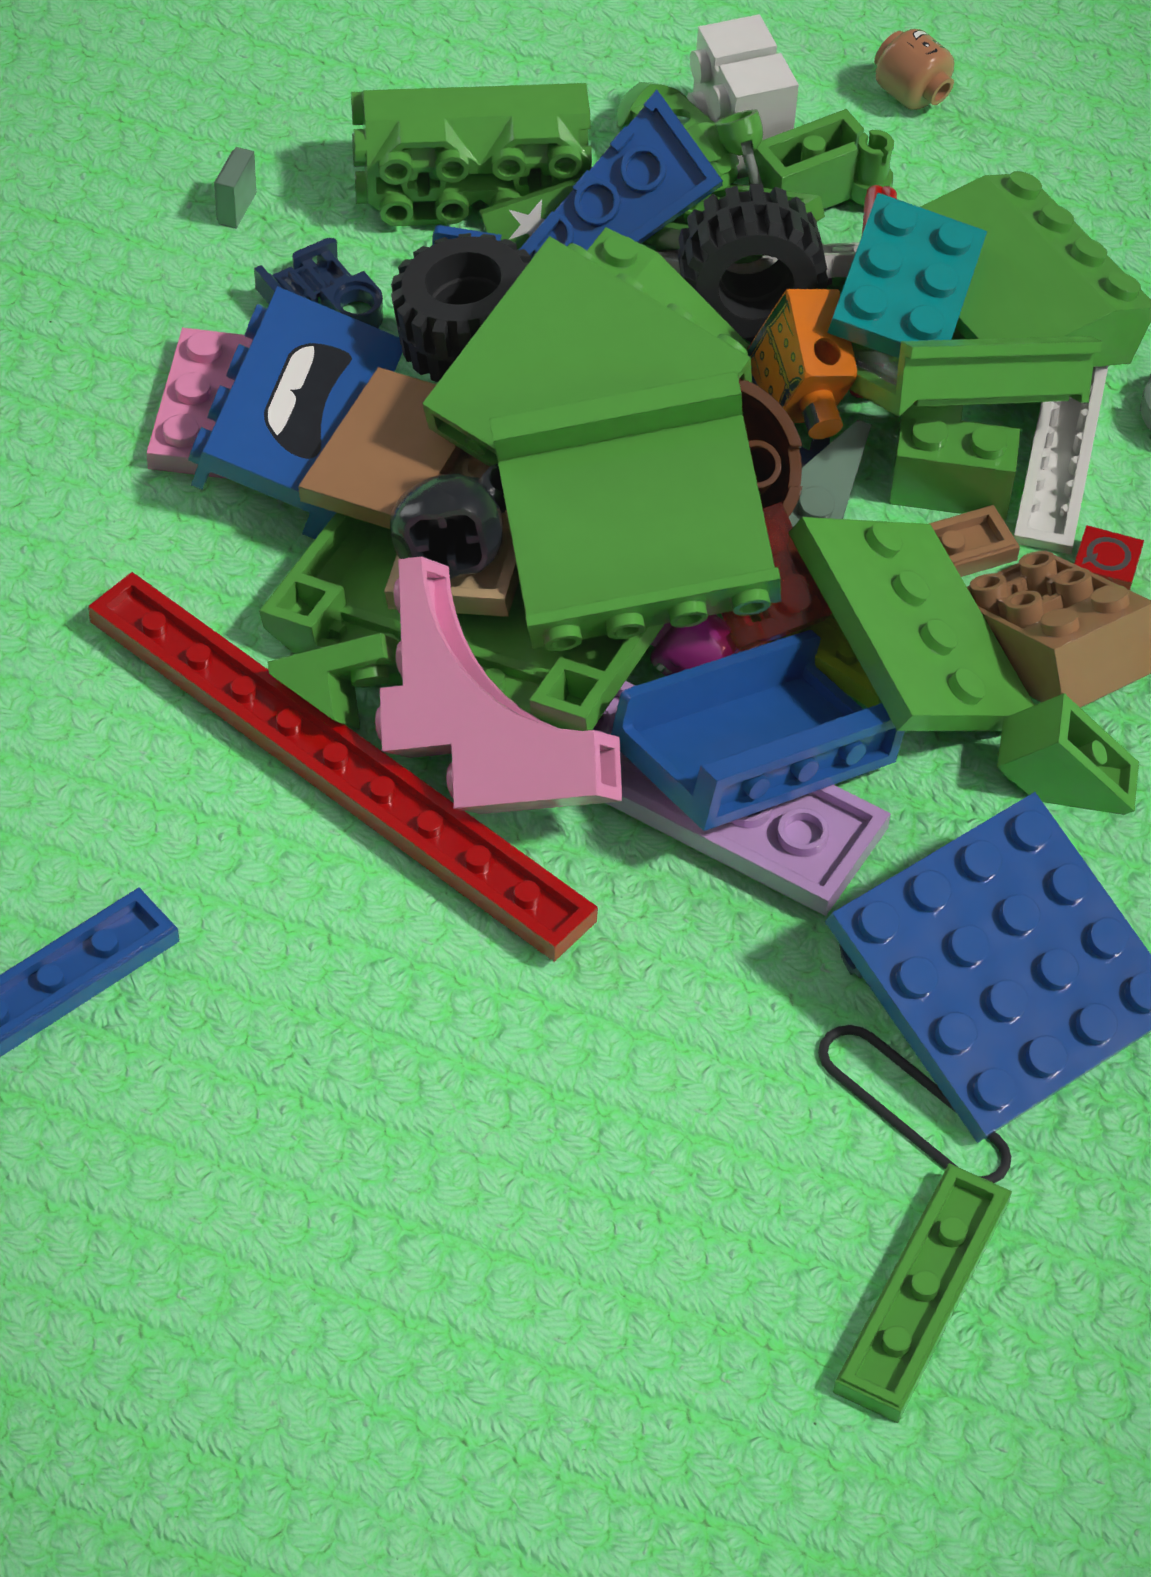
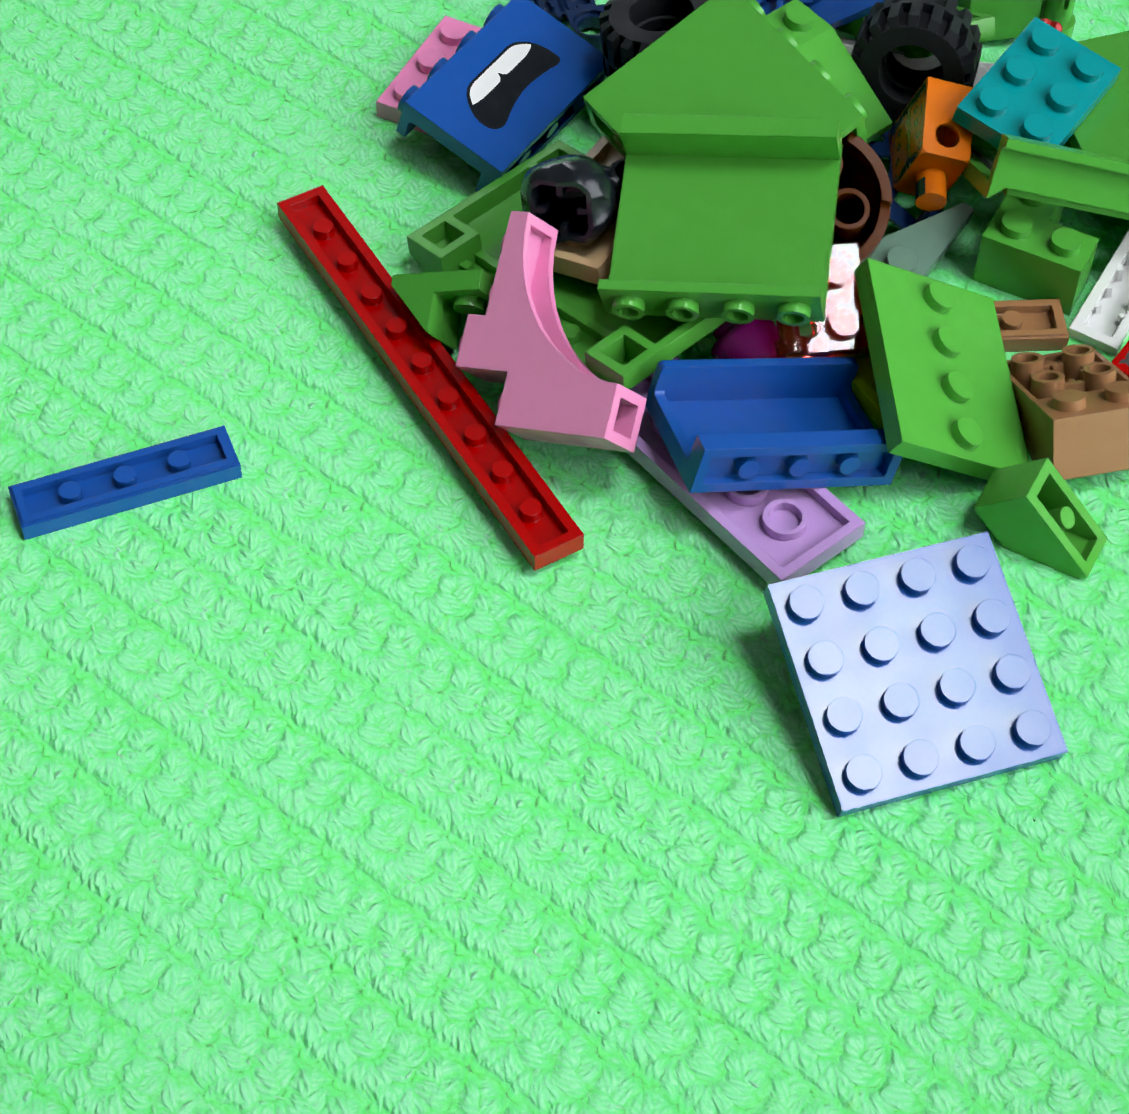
camera: 20 degrees right, 0 degrees up
(379, 451) = (543, 130): medium nougat tile -> none
(887, 1114) = (772, 779): black piece -> none
(922, 1293) = (735, 929): bright green tile -> none

